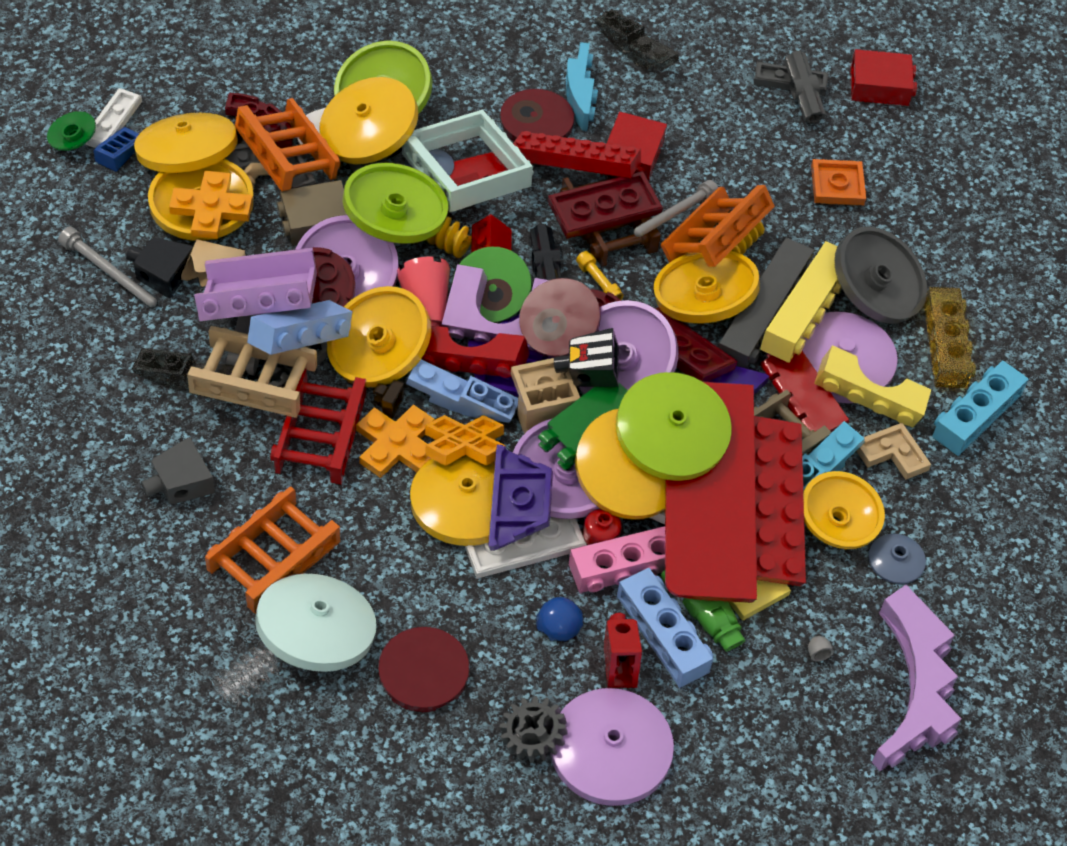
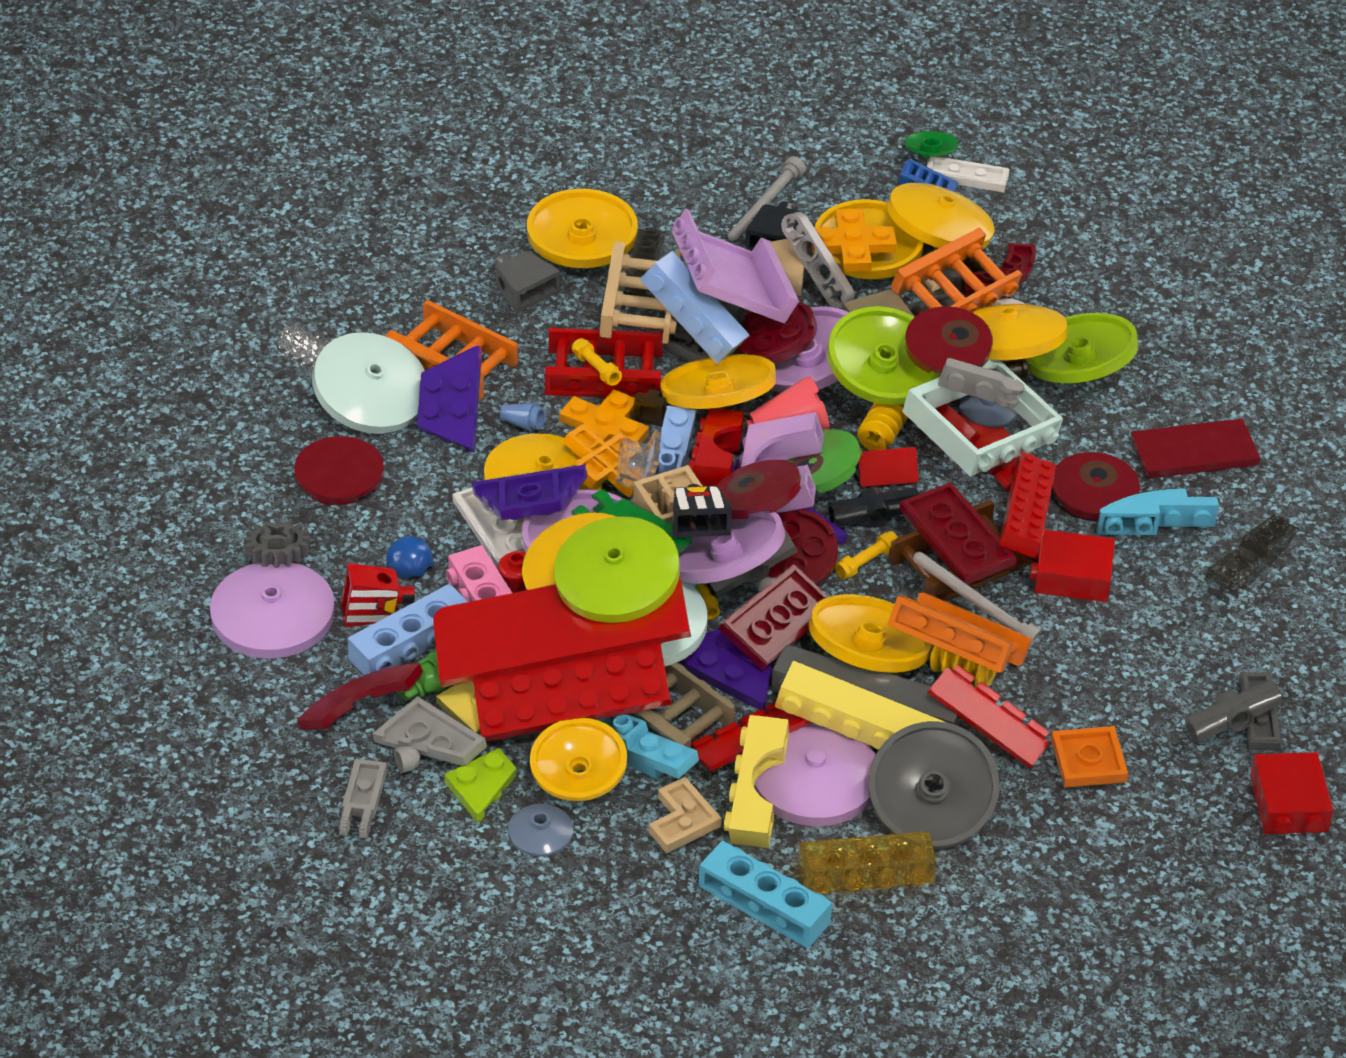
camera: 85 degrees right, 10 degrees down
(122, 412) = (580, 227): none -> yellow dish
(234, 230) = (820, 257): none -> light grey beam
(315, 432) = (608, 371): none -> yellow bar
(354, 553) = (451, 399): none -> dark purple wing
(381, 498) = (527, 416): none -> medium blue cone
(398, 152) = (947, 334): none -> dark red tile
(453, 142) = (980, 383): none -> light grey hinge
(476, 409) = (637, 460): none -> clear panel
(502, 50) = (1195, 448): none -> dark red tile
(739, 678) = (341, 700): none -> dark red tile
(792, 624) = (431, 733): none -> light grey wing
(800, 227) = (998, 723): none -> windscreen
(845, 594) = (481, 781): none -> lime wing
(864, 688) = (362, 795): none -> light grey hinge
(924, 645) = (380, 847): lavender arch -> none

